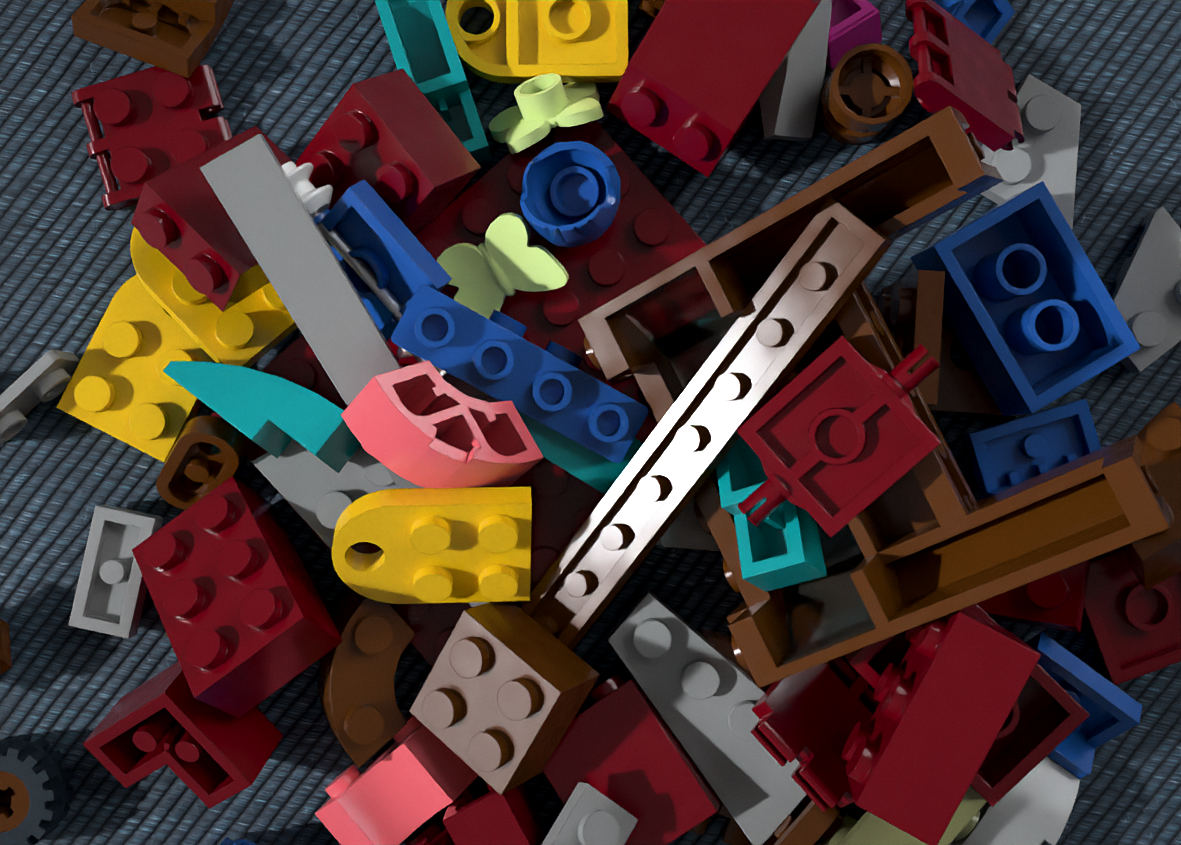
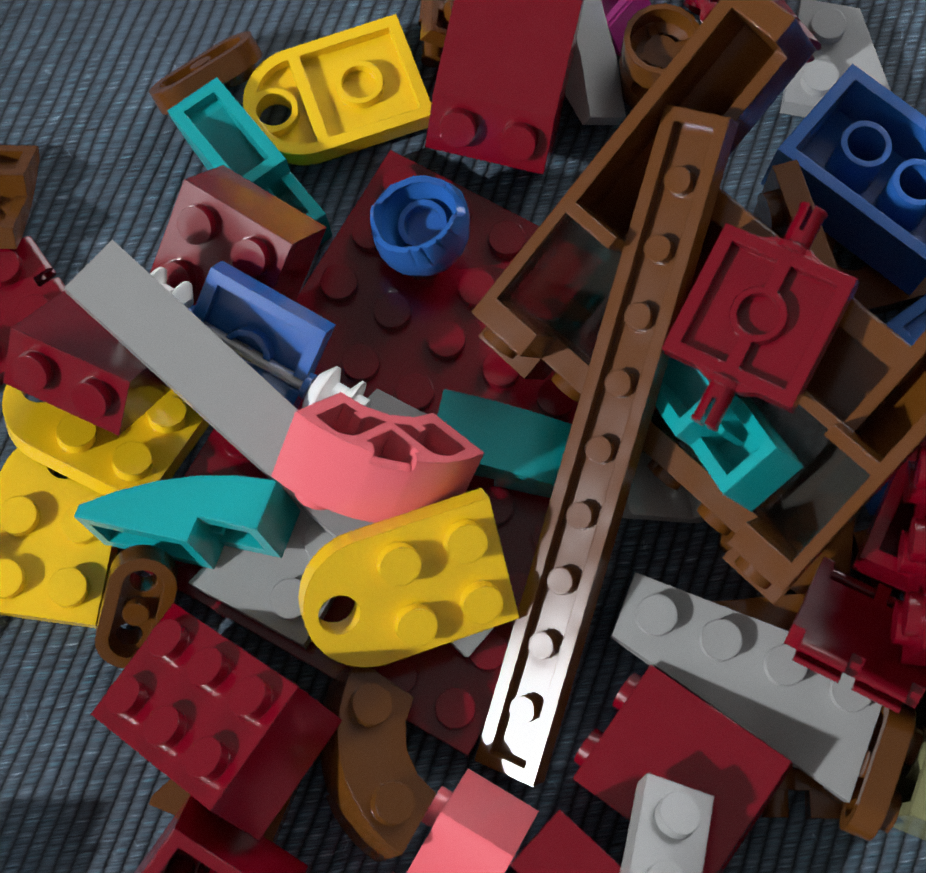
camera: 15 degrees left, 15 degrees down
(110, 581) = (75, 756): light grey plate -> none
(500, 266) = (375, 313): yellowish green animal -> none
(503, 693) = (526, 718): brick -> none
(509, 368) = (414, 383): blue bracket -> none
(542, 106) = (364, 162): yellowish green animal -> none

